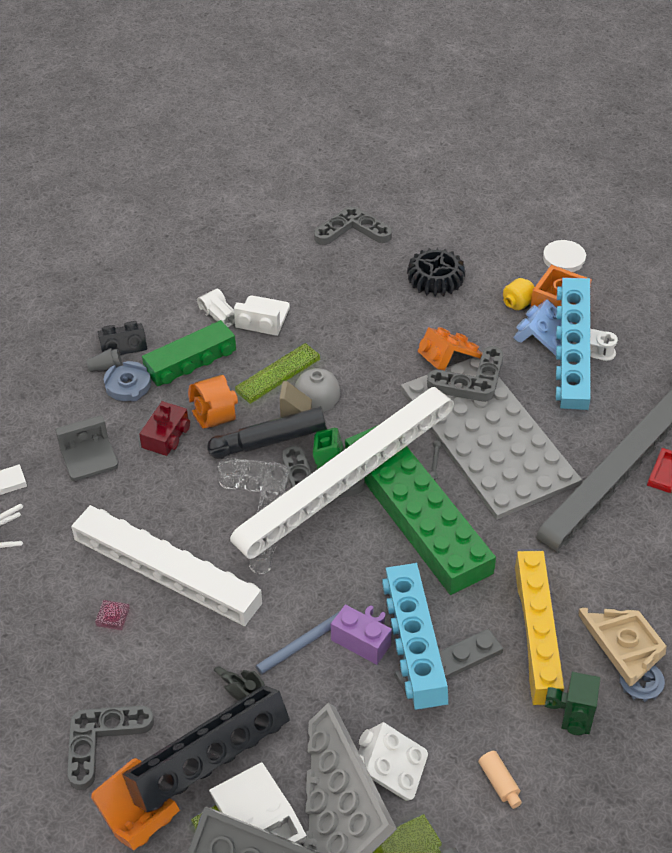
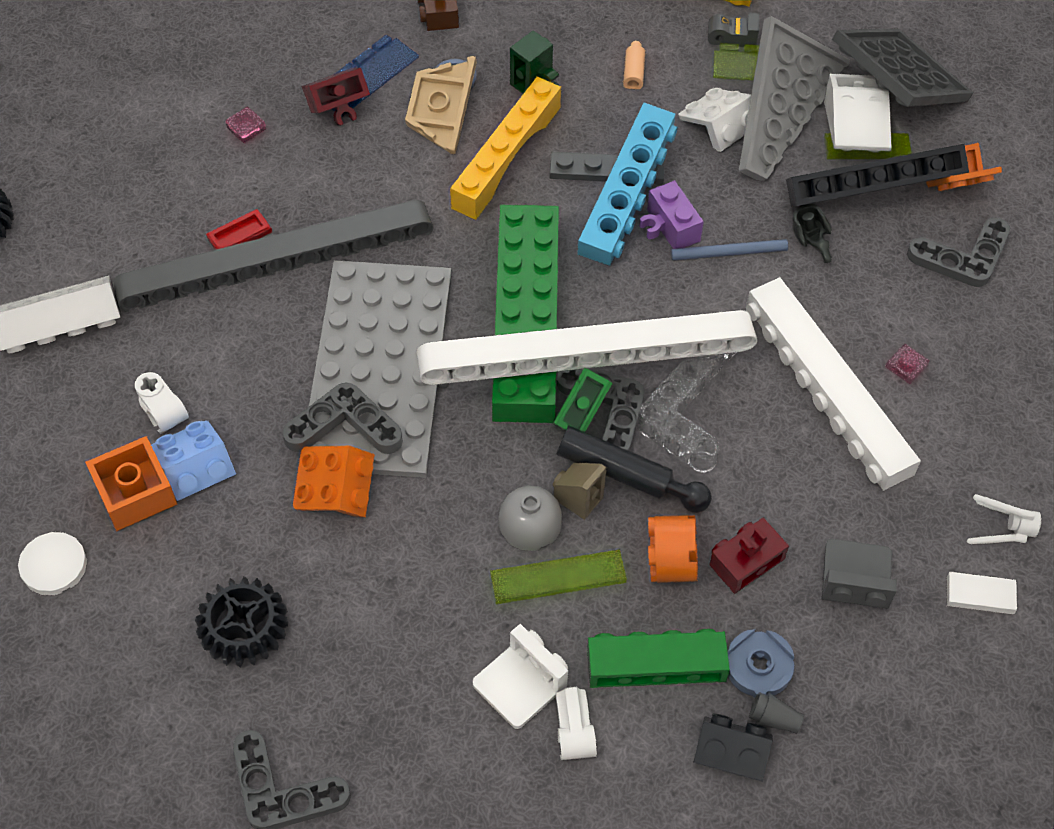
camera: 150 degrees left, 10 degrees up
(518, 294) = (176, 519): yellow head -> none
(573, 396) = (192, 389): medium azure brick -> none

